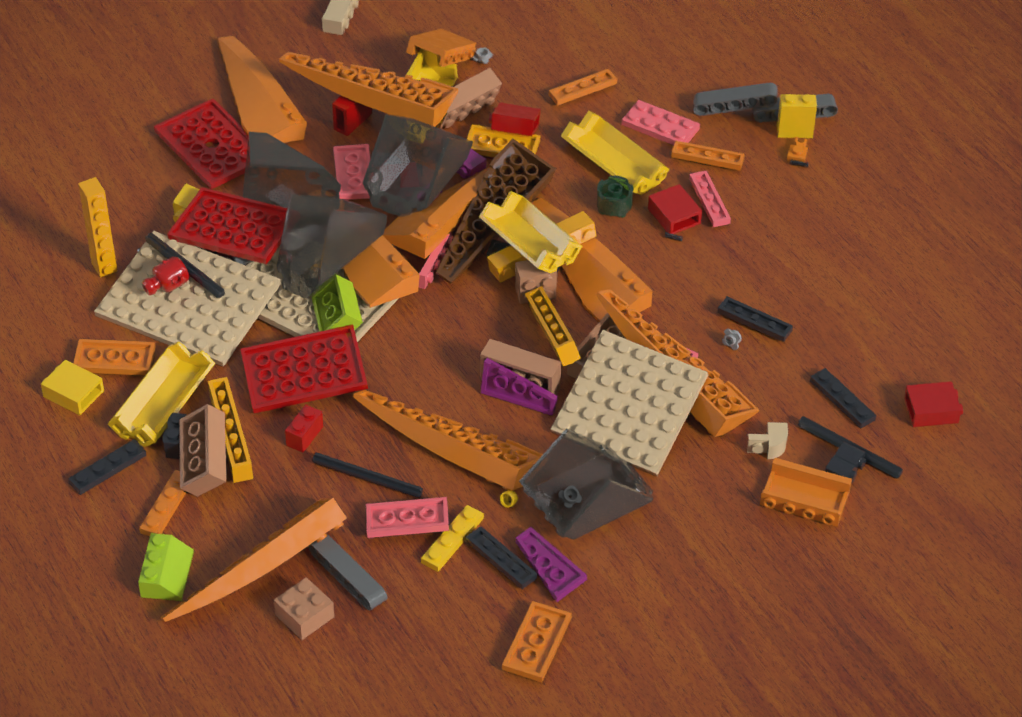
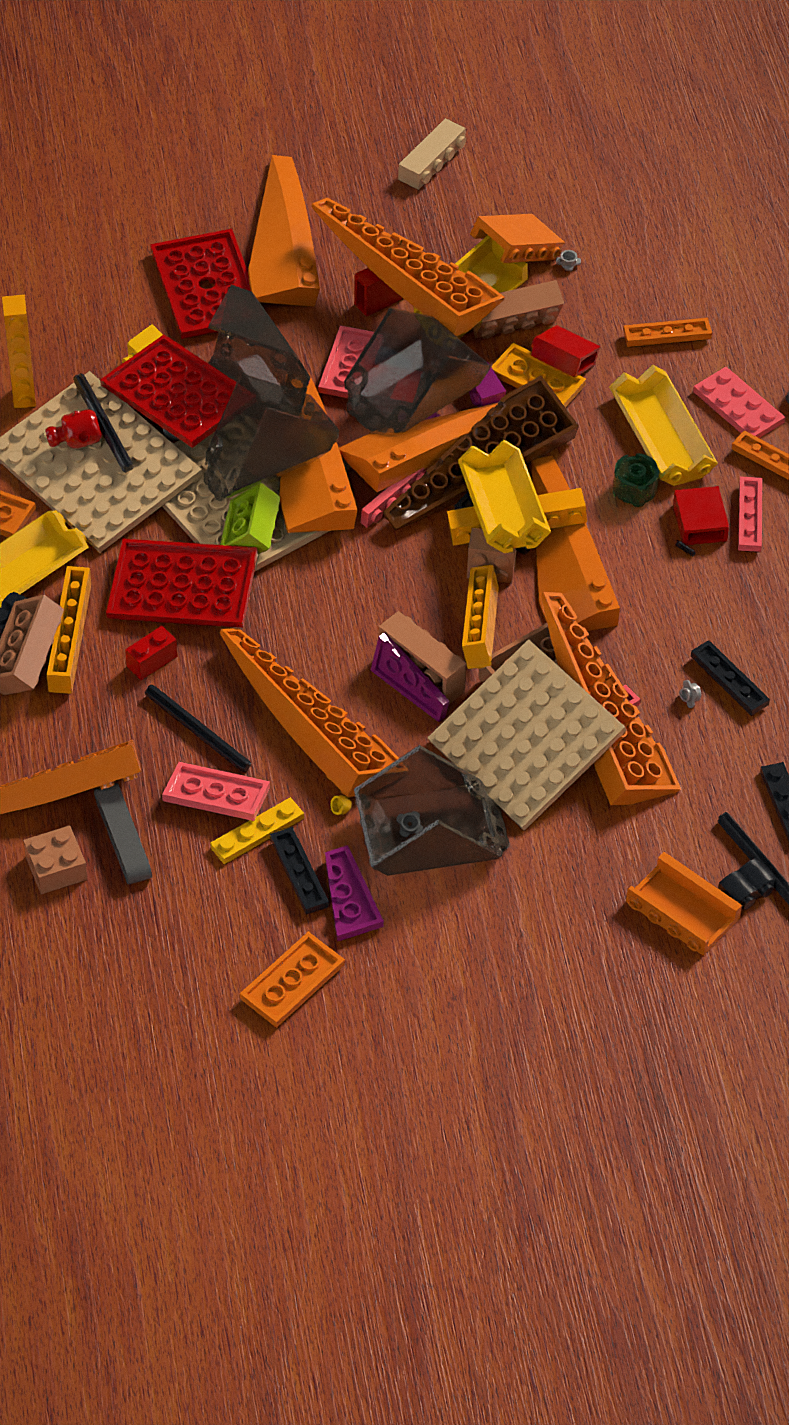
camera: 20 degrees right, 5 degrees up
(772, 442) = (674, 834): tan brick -> none

